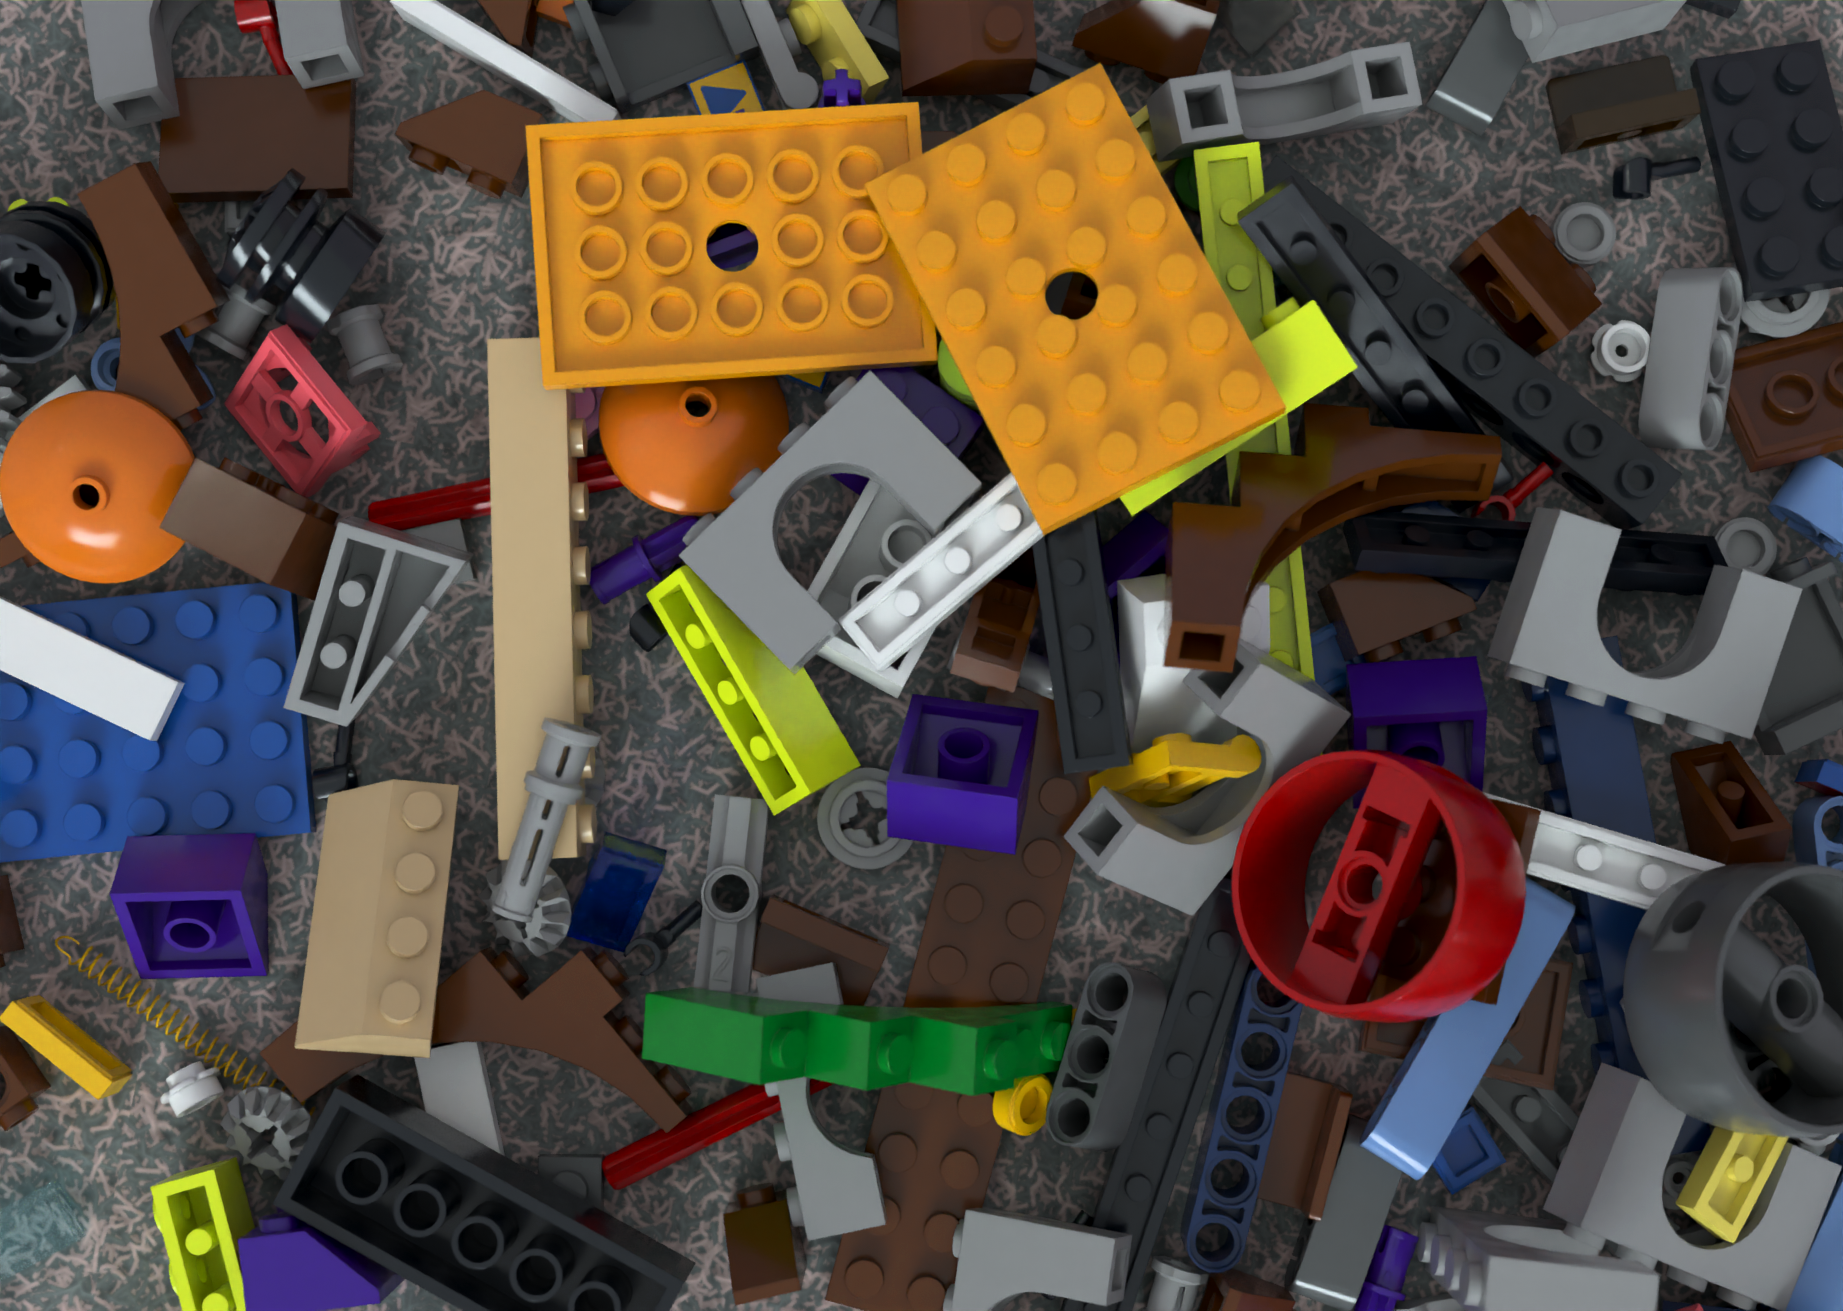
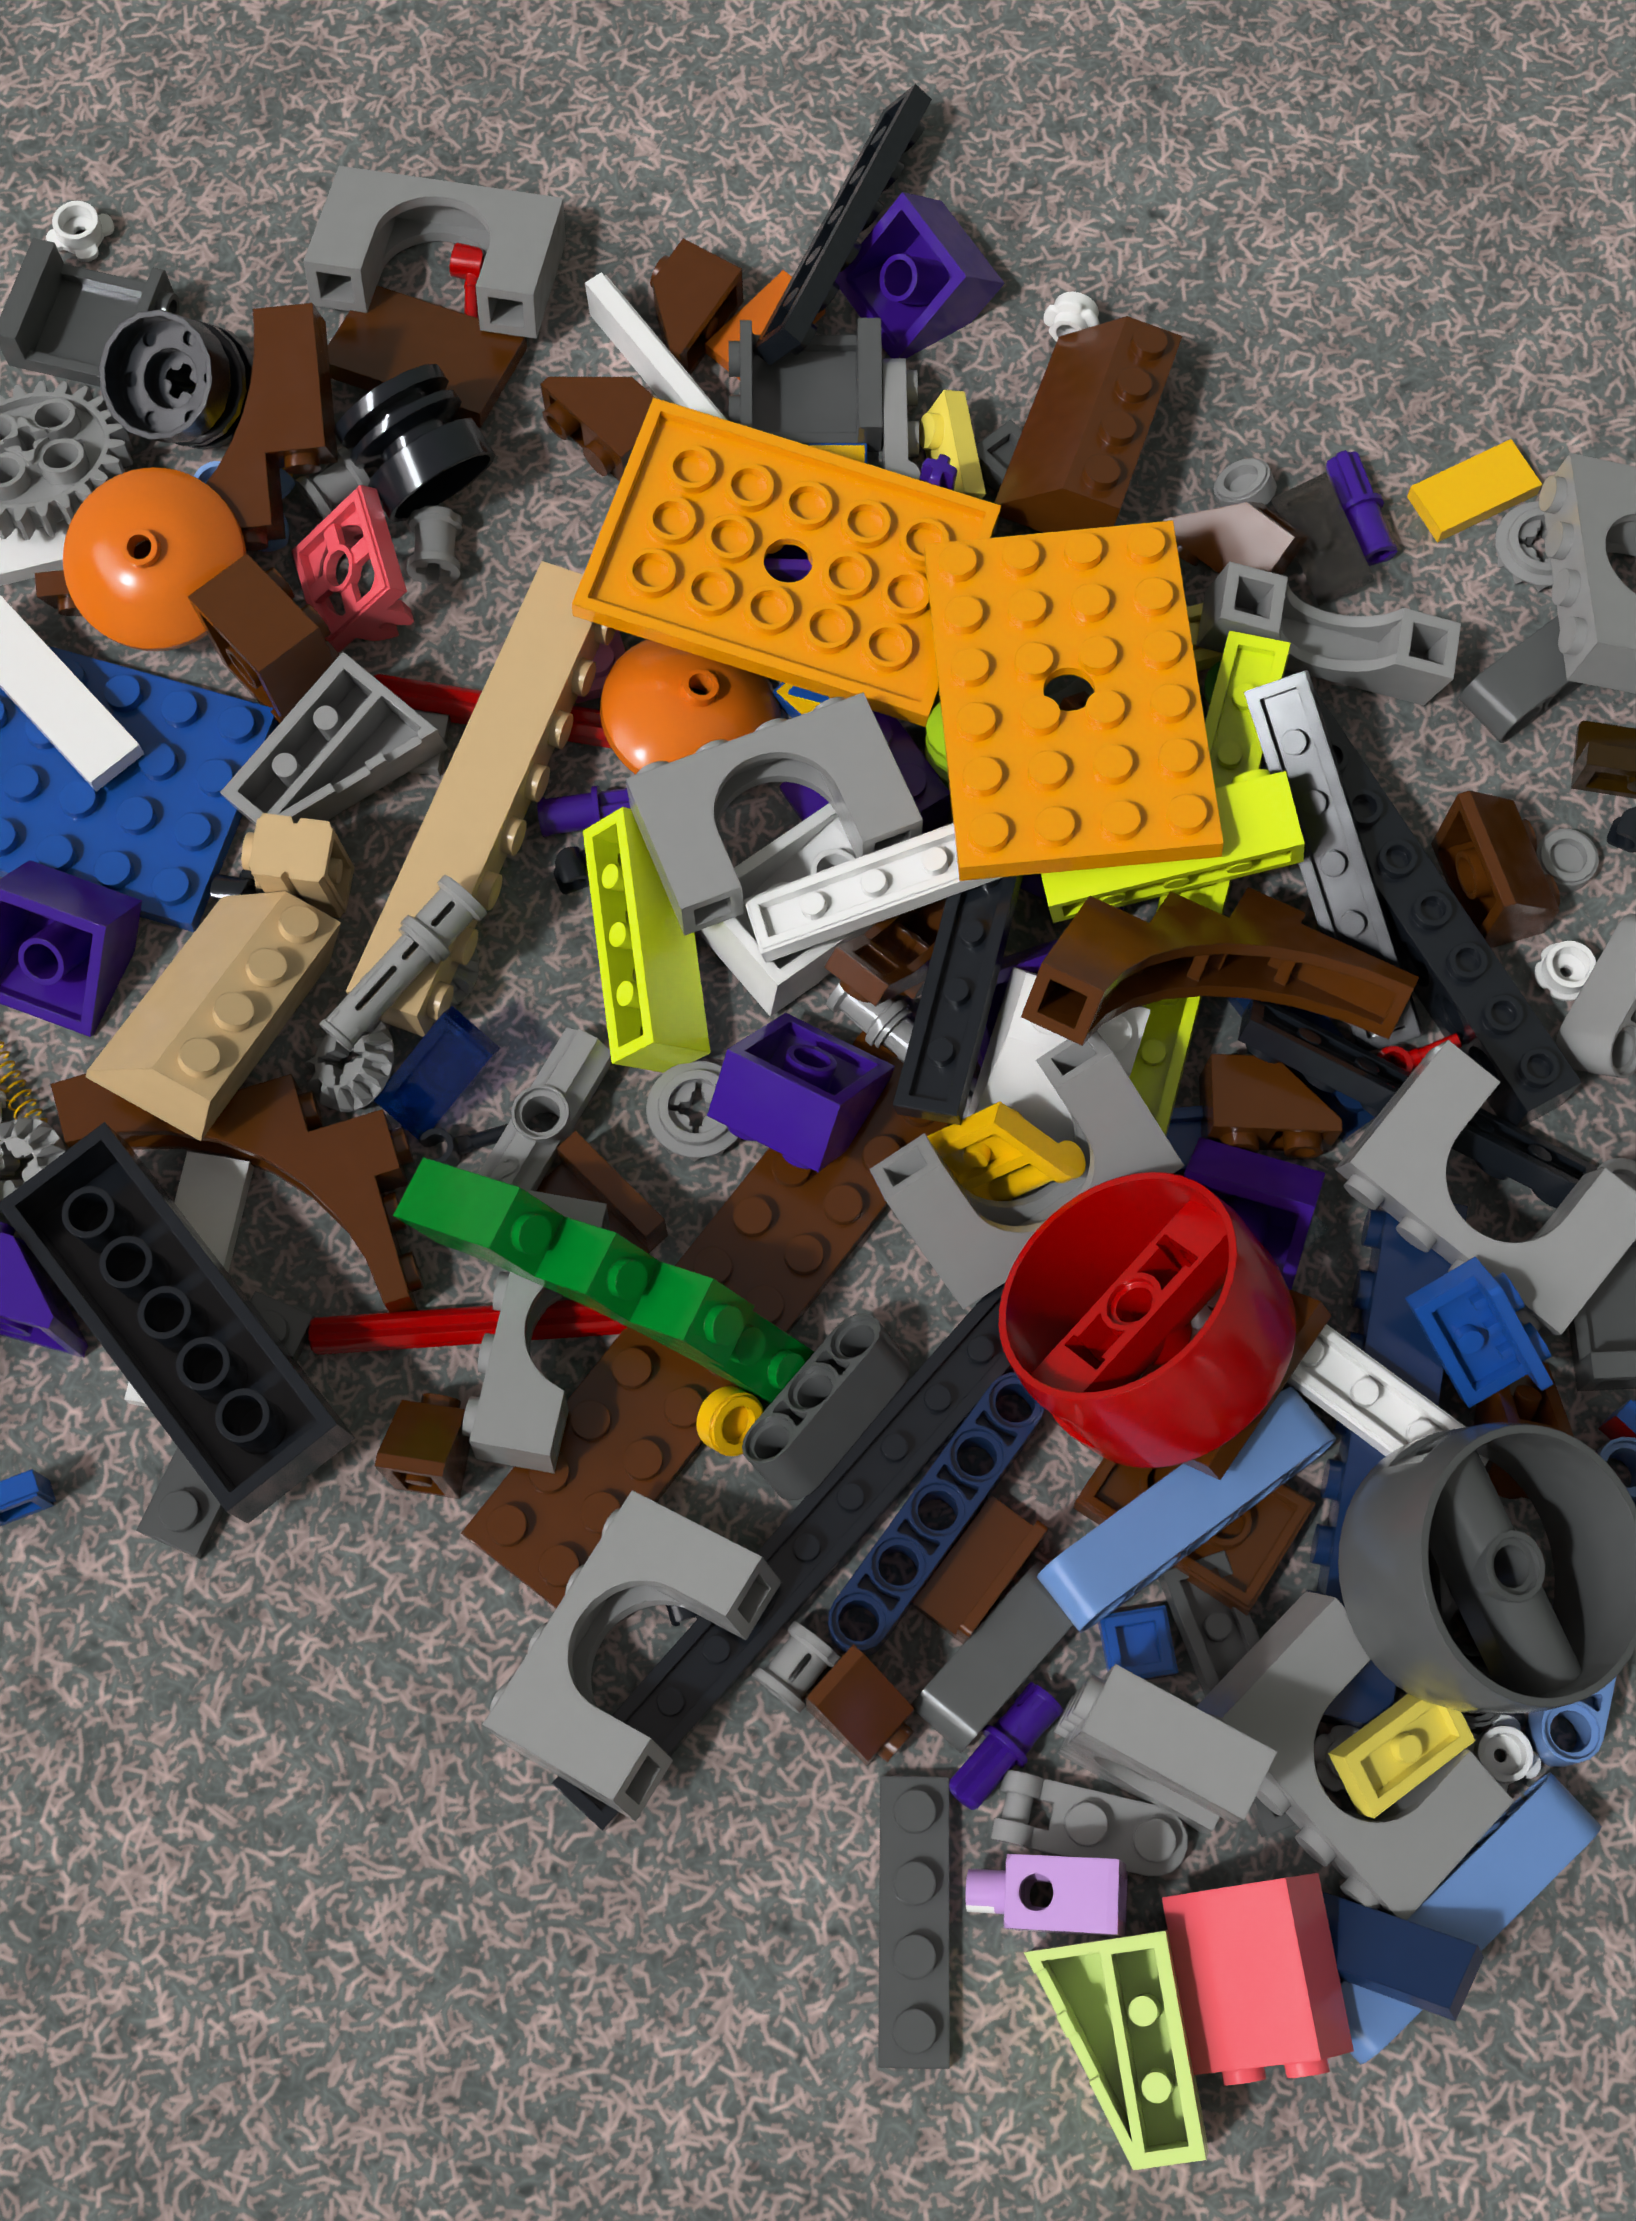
camera: 20 degrees right, 15 degrees down
(391, 745) = (301, 860): none -> tan brick
(1675, 764) = (1477, 1331): none -> blue bracket

